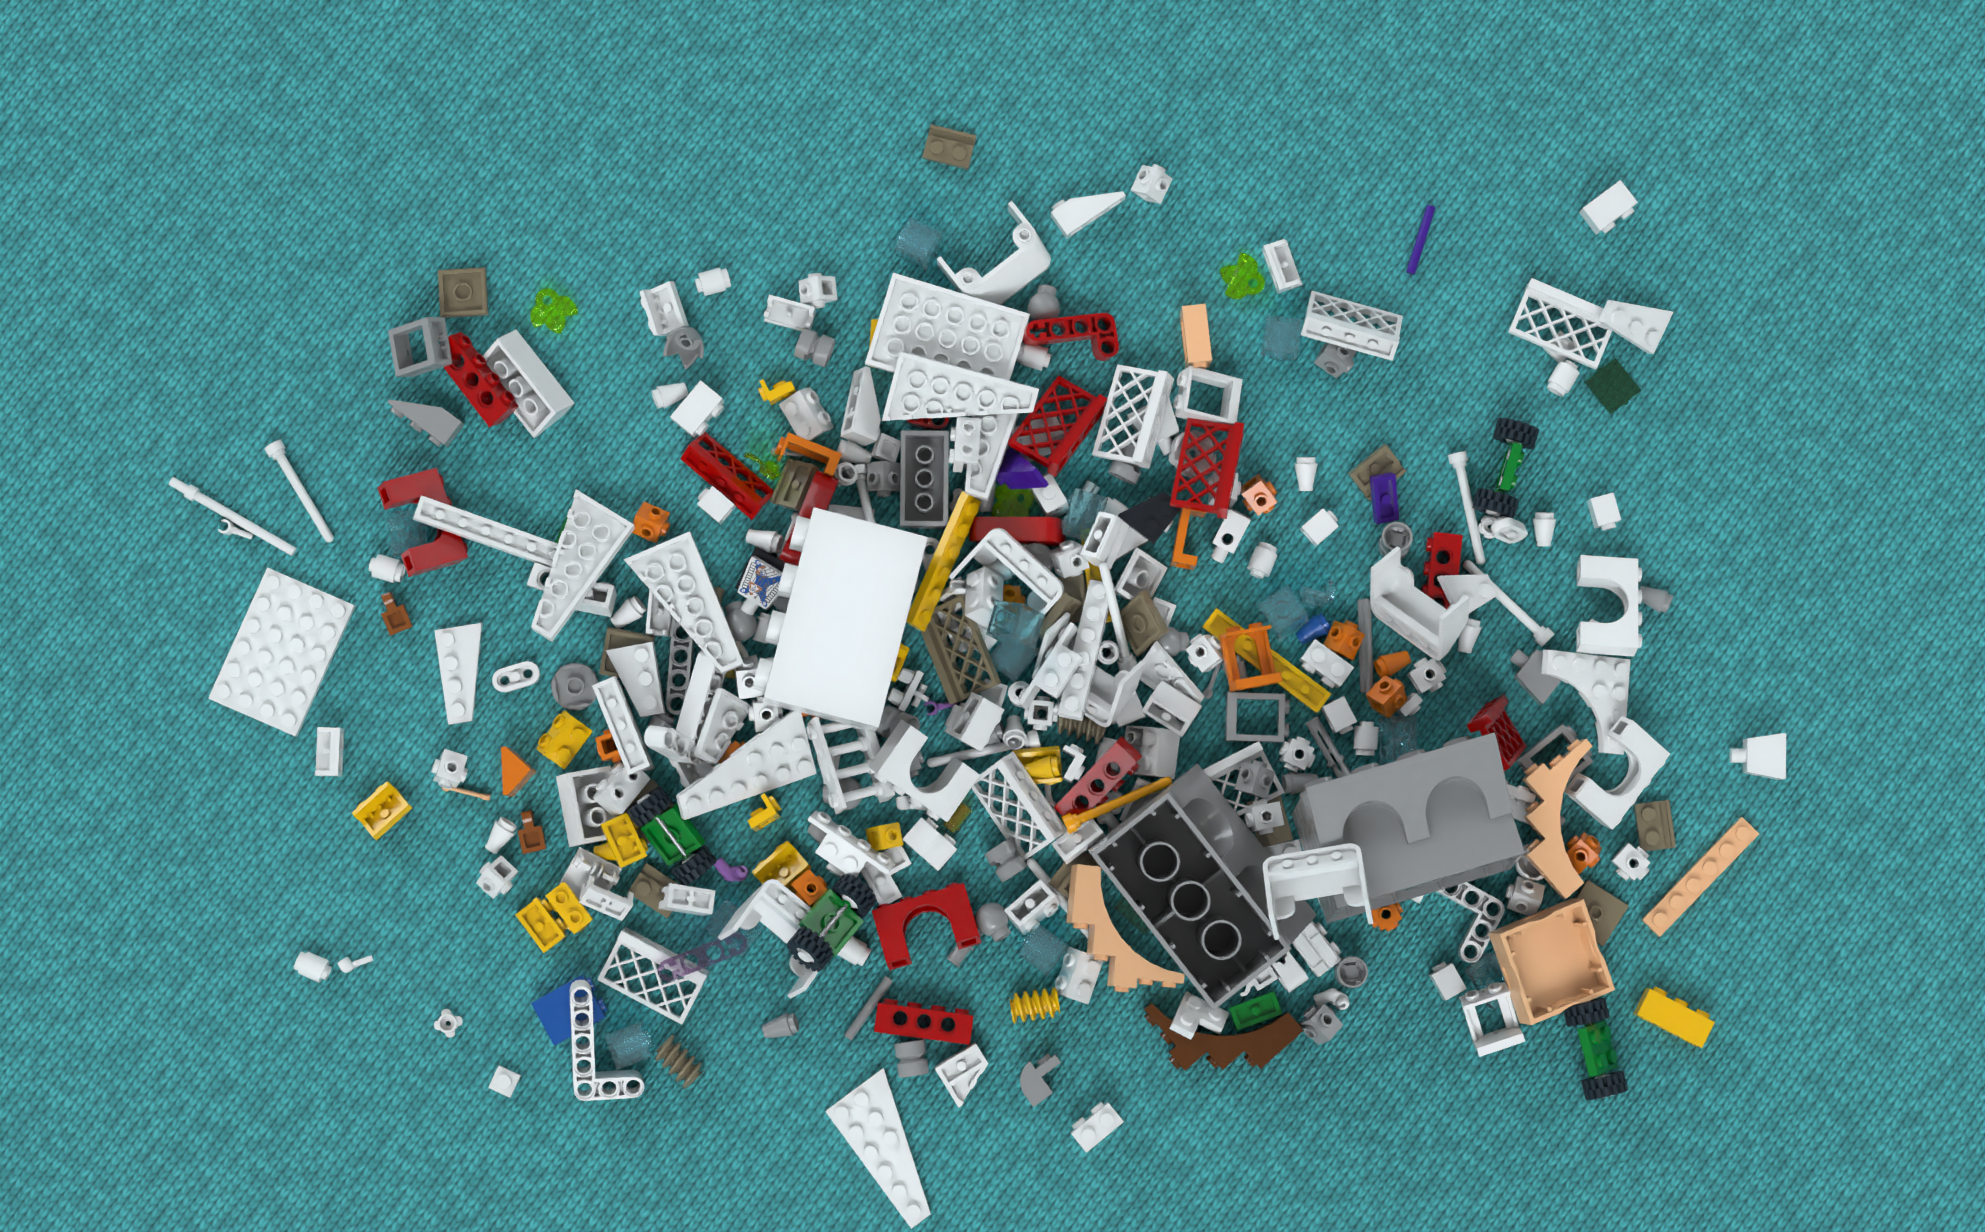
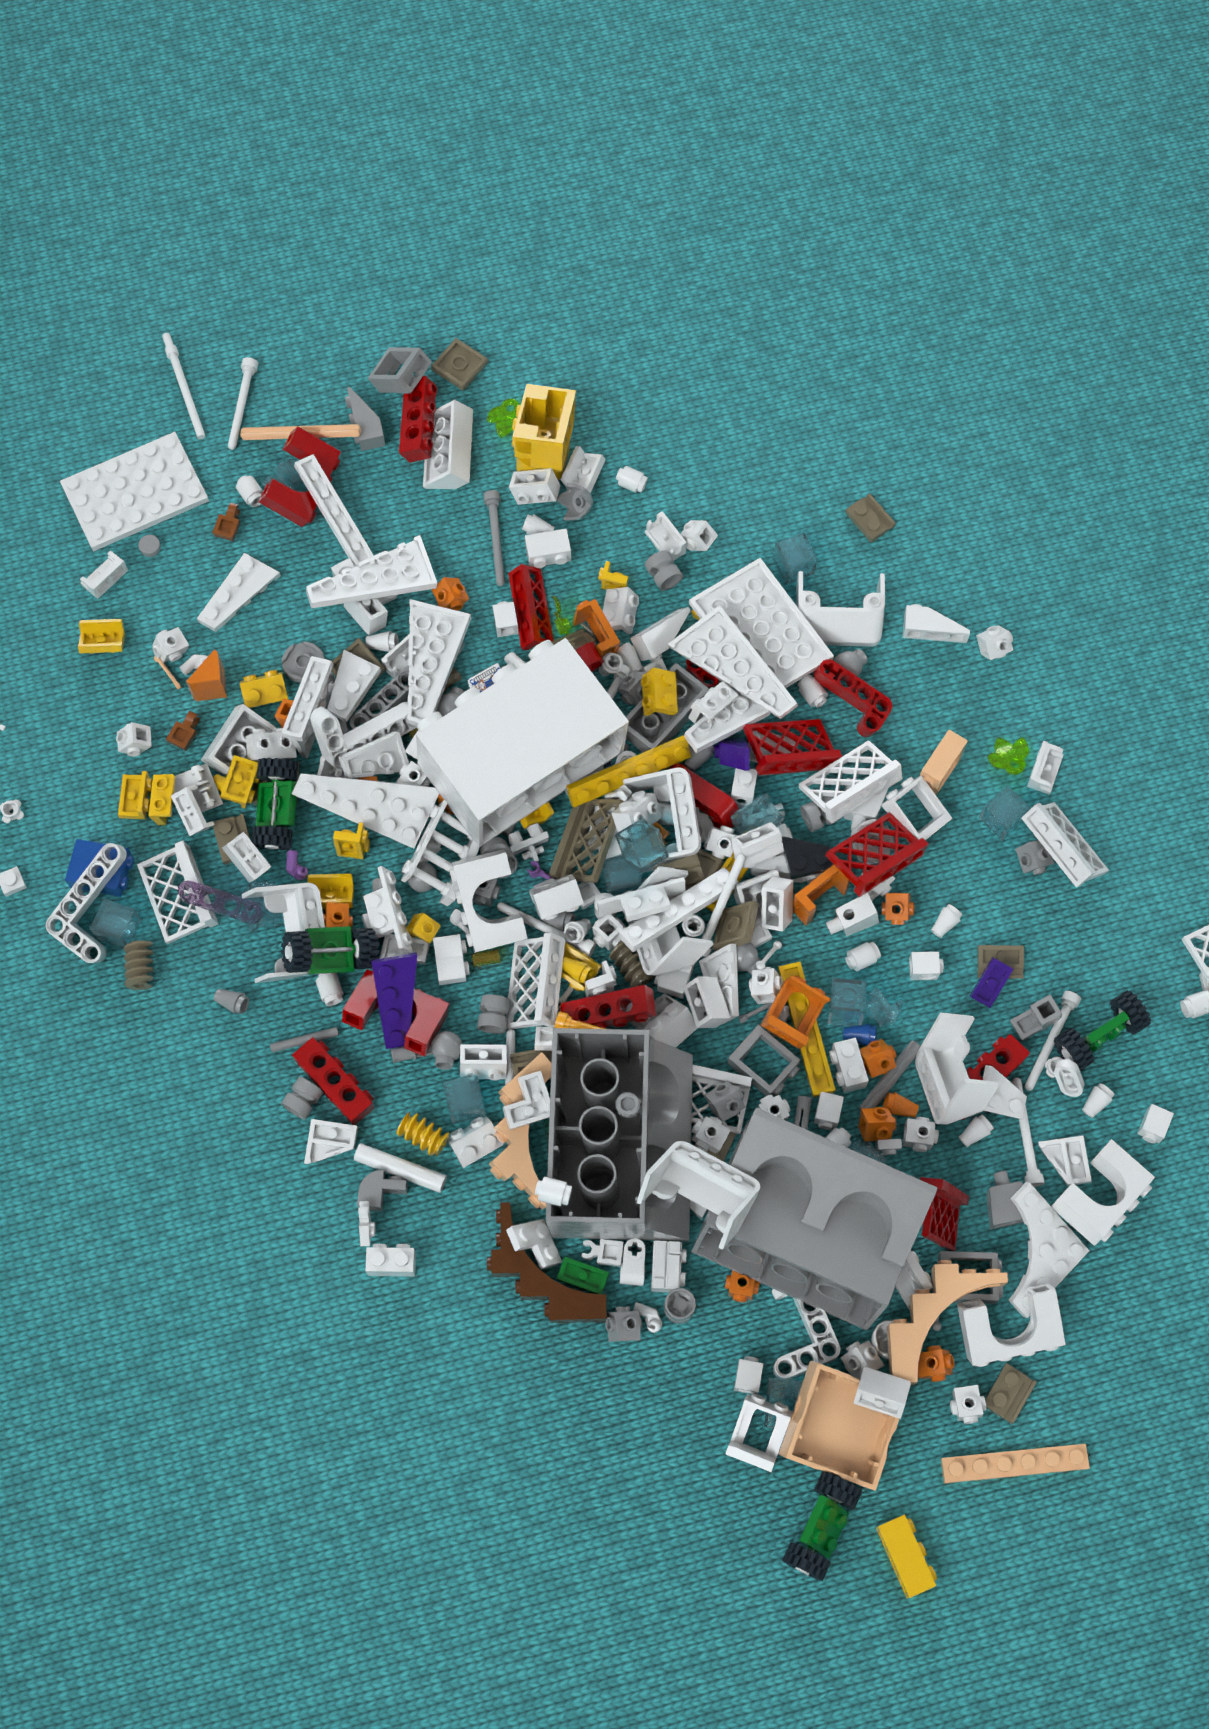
camera: 40 degrees right, 15 degrees down
(234, 530) = (175, 392): white hand -> none
(343, 691) = (149, 546): none -> light grey tile
(386, 474) = (318, 431): none -> light nougat axle
(482, 763) = (192, 663): none -> white arm
(501, 833) = (163, 716): white cone -> none
(516, 676) = (271, 623): white plate -> none
(602, 305) = (544, 428): none -> yellow brick
(607, 402) = (492, 501): none -> light grey piece
(637, 362) = (534, 486): none -> white brick
(876, 1134) = (227, 1138): white wing -> none
(911, 471) = (659, 692): none -> yellow bracket
(917, 915) = (395, 991): none -> dark purple wing
(1008, 502) = (713, 772): clear neon green plate -> none
(1038, 1046) = (400, 1167): none -> white piece
(1055, 1116) = (366, 1227): none -> white plate
(1110, 911) = (535, 1103): none -> white plate
(1160, 577) = (777, 903): none -> white brick
(1188, 639) = (761, 964): none -> white hinge
(1202, 867) = (627, 1105): none -> light grey tile
(1203, 984) = (553, 1191): none -> white brick
(1395, 535) = (982, 1016): light grey wheel -> none
(1420, 240) = (1165, 829): dark purple bar -> none
(1444, 500) = (1038, 1018): none -> light grey brick
(1558, 597) = (1068, 1159): none -> white wing
(1564, 913) = (882, 1392): none -> white panel
(1603, 910) = (915, 1425): dark tan plate -> none
(1656, 598) = (1146, 1222): light grey cone -> none
(1762, 756) = (1139, 1409): white torso -> none

